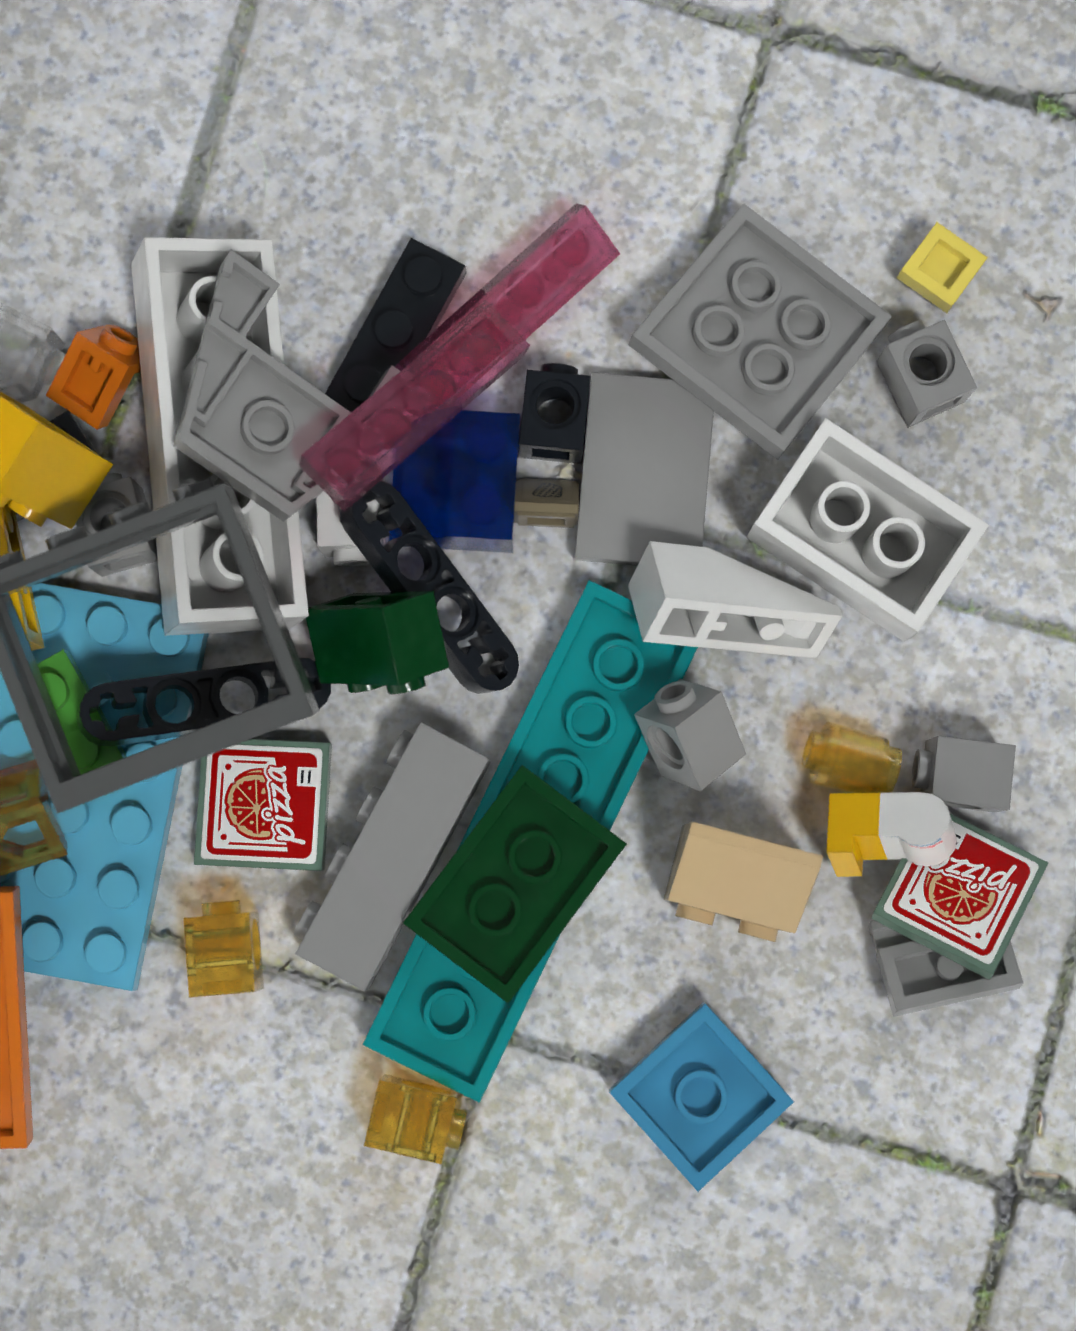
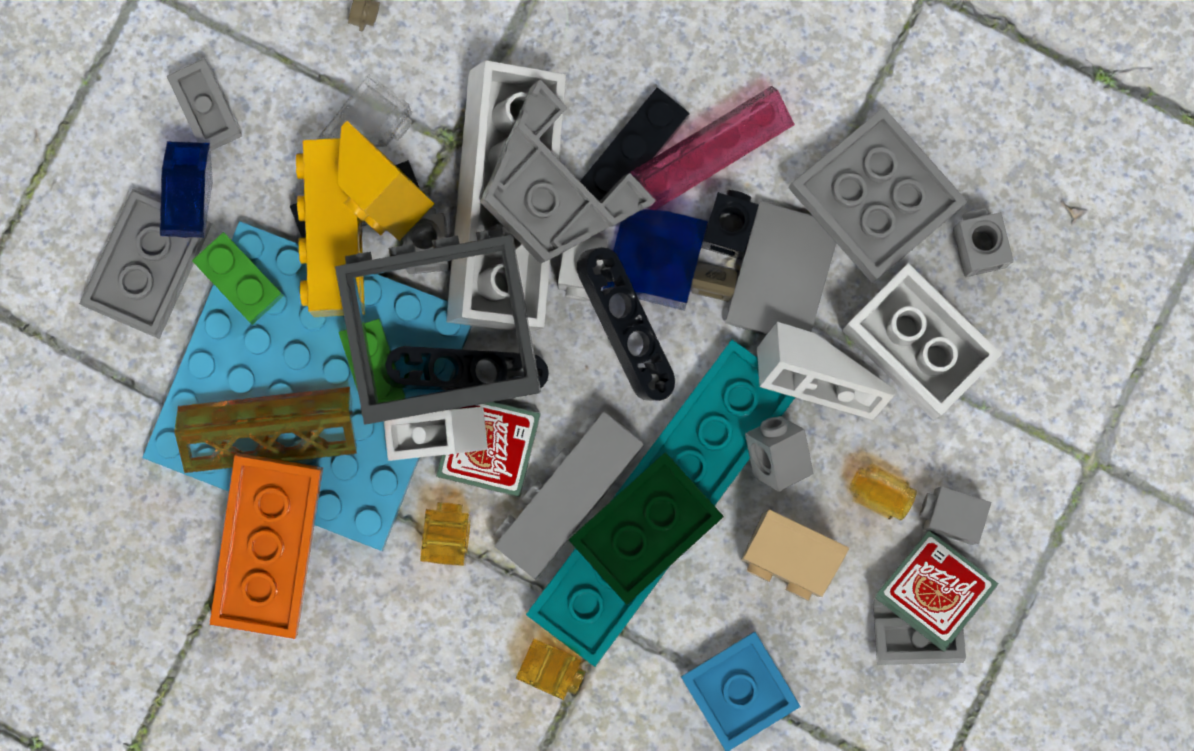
camera: 10 degrees right, 0 degrees up
(96, 373) = (431, 138): orange bracket -> none
(178, 803) = (436, 434): none -> white slope
(377, 640) = (586, 352): dark green brick -> none
(413, 405) = (640, 203): clear pink plate -> none
(887, 829) = (896, 540): leg -> none
(941, 267) = (1008, 175): light yellow plate -> none

